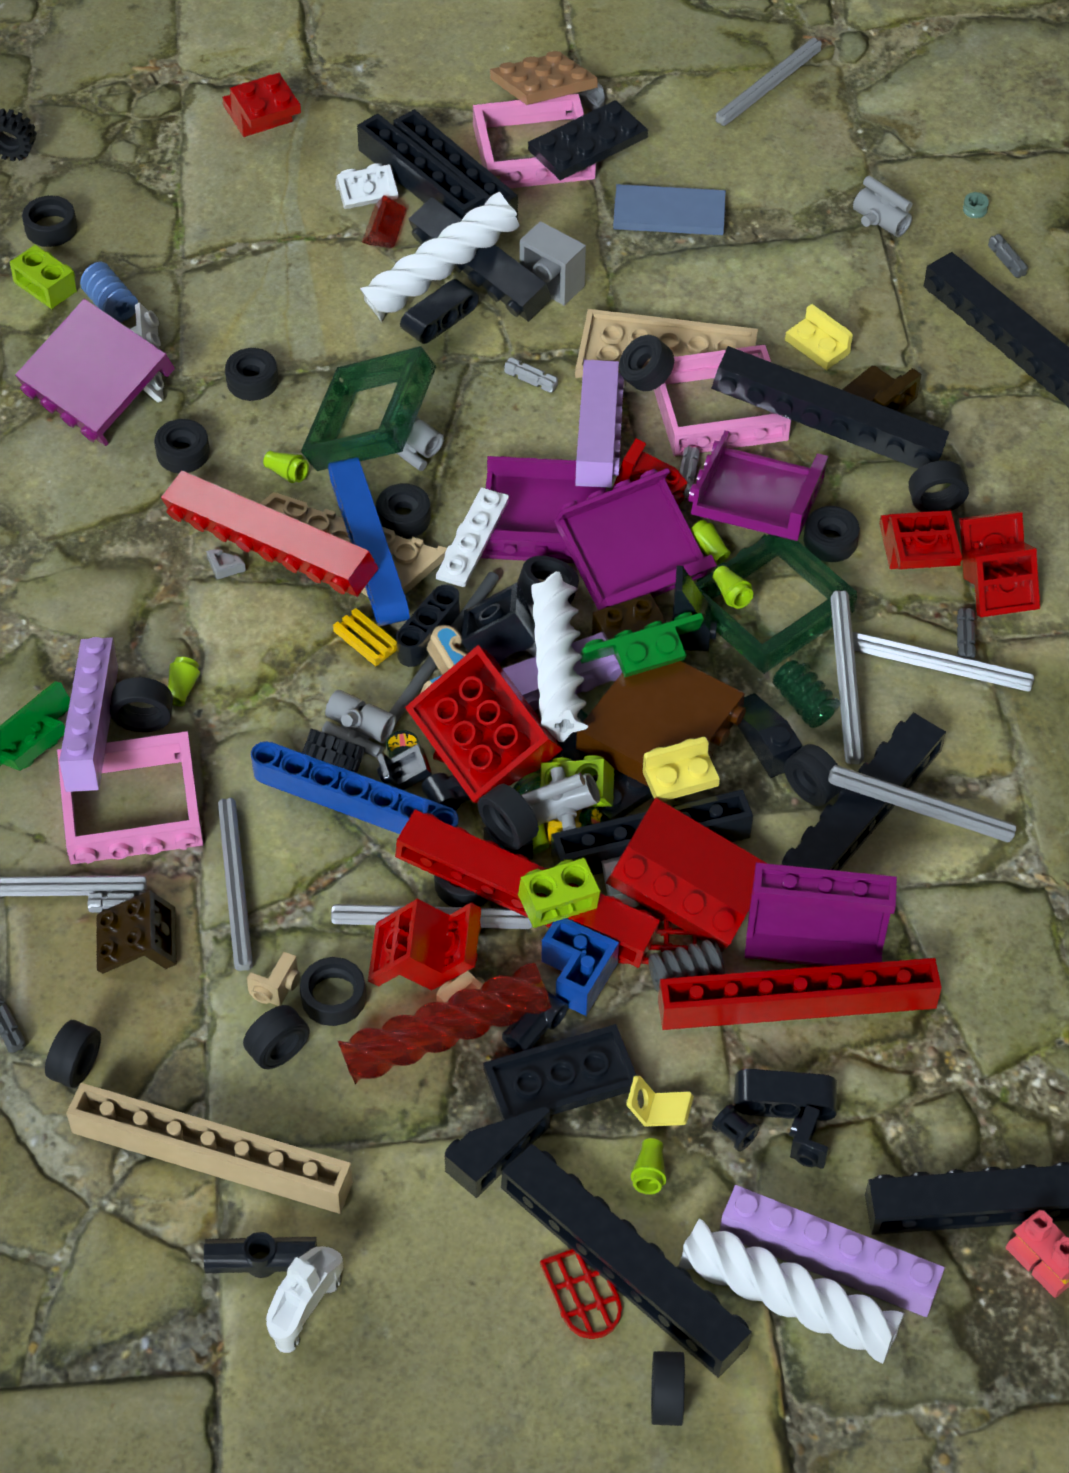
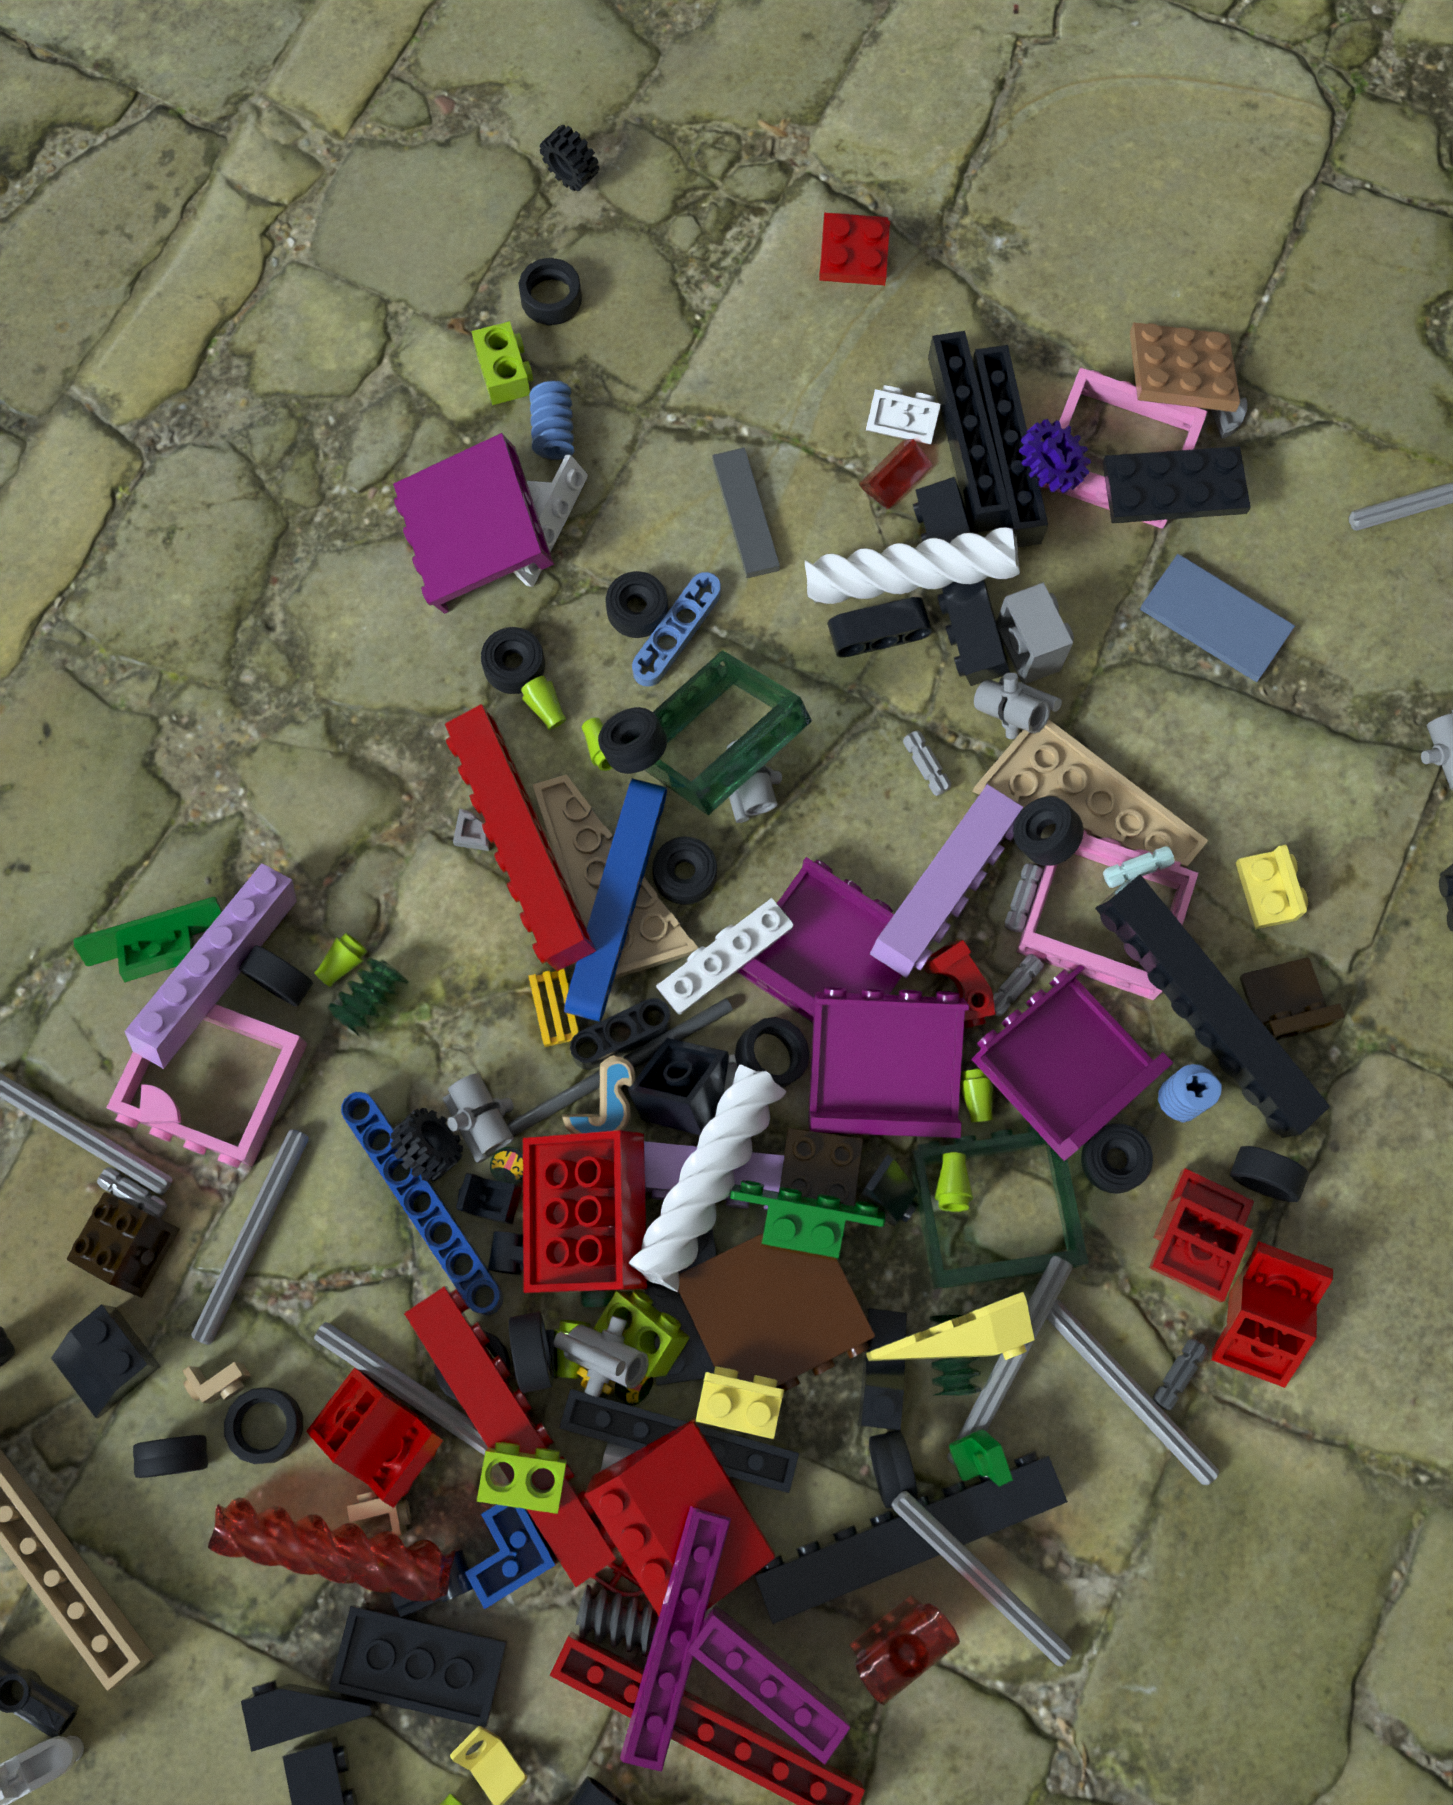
camera: 30 degrees right, 20 degrees up
(109, 821) = (157, 1106): none -> bright pink tile
(175, 1012) = (103, 1359): none -> black slope
(219, 690) = (366, 995): none -> clear green piece
(223, 459) = (543, 701): none -> lime cone
(291, 377) = (680, 631): none -> medium blue beam
(292, 290) = (745, 513): none -> dark grey tile
(313, 436) = (641, 752): none -> black tyre
(494, 153) = (1054, 456): none -> dark purple gear
(568, 309) = (1015, 704): none -> light grey pin
(656, 420) = (1023, 897): none -> light grey axle
(710, 367) = (1143, 865): none -> light aqua axle
(738, 932) = (676, 1629): none -> magenta tile
(812, 655) = (981, 1333): none -> light yellow wedge
(851, 467) = (1189, 1092): none -> medium blue piece
(870, 732) = (980, 1455): none -> green bracket
(906, 854) = (902, 1647): none -> clear red piece

